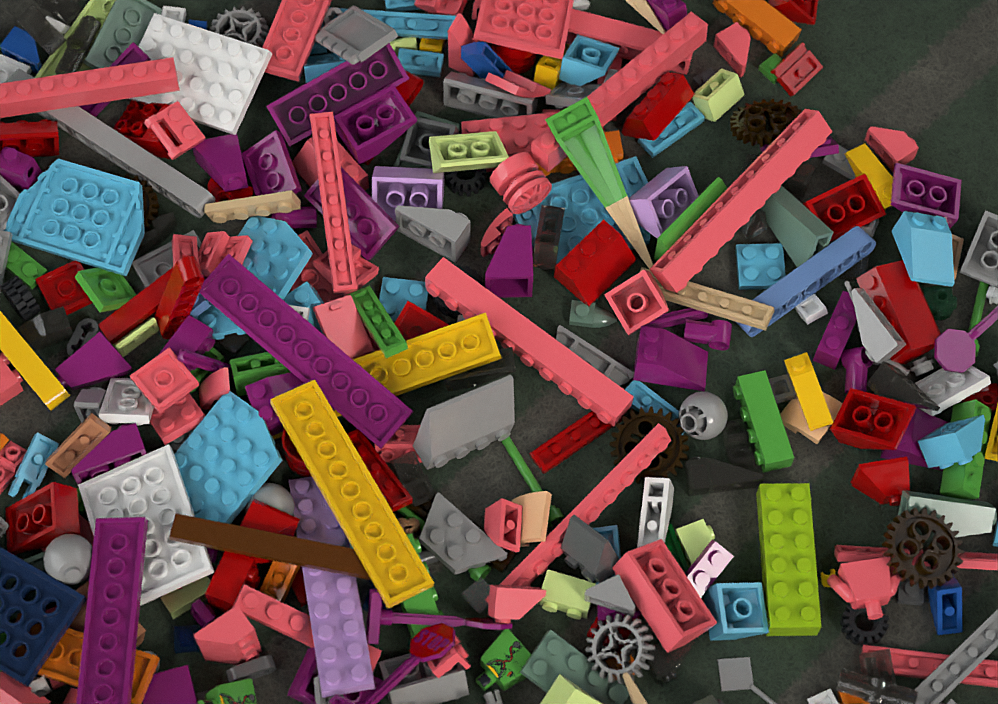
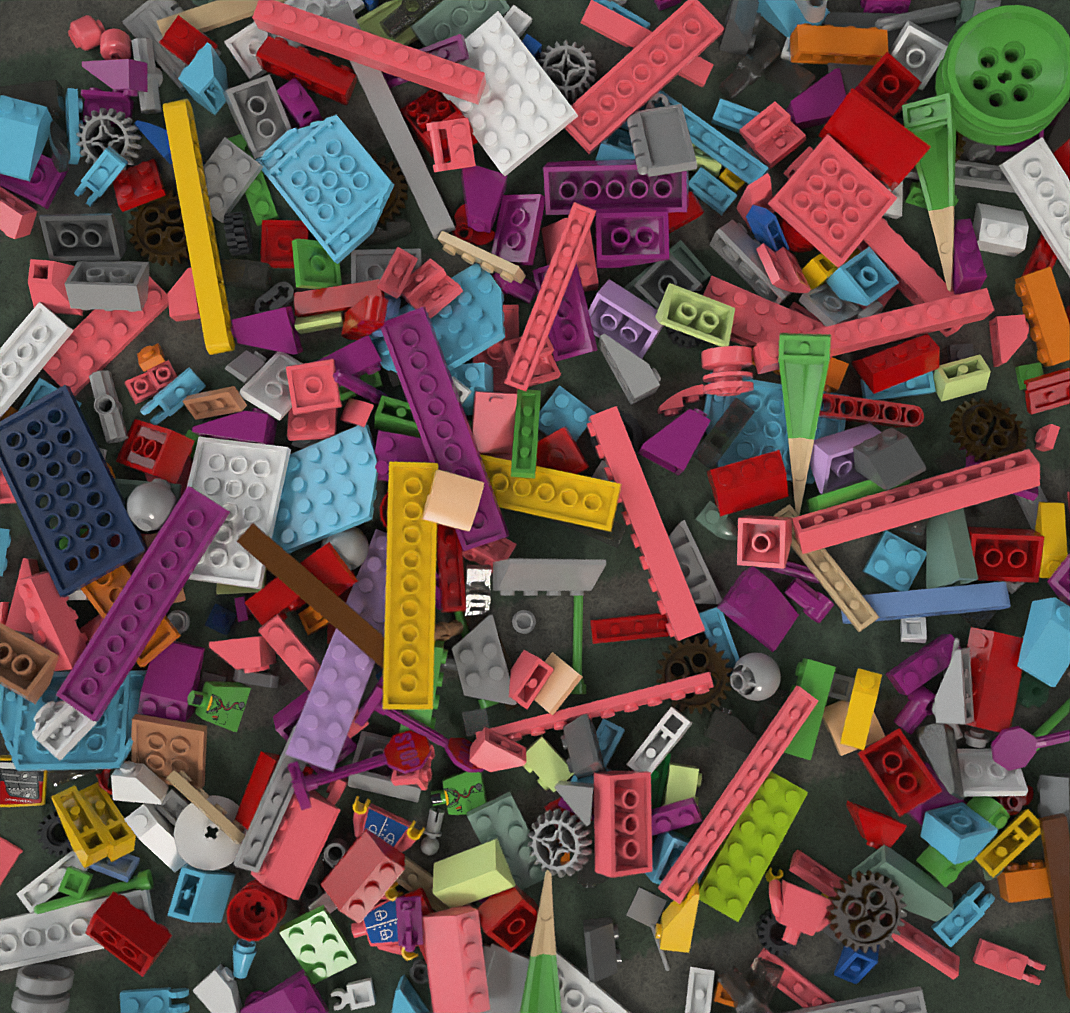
camera: 30 degrees right, 20 degrees up
(347, 400) = (453, 500): none -> light nougat slope
(470, 487) = (523, 621): none -> light grey plate
(688, 149) = (875, 411): none -> red beam
(696, 177) = (887, 459): none -> dark grey slope
(749, 518) = (737, 794): none -> coral plate
(769, 658) = (678, 922): none -> yellow slope
(818, 102) = (1046, 437): none -> coral plate

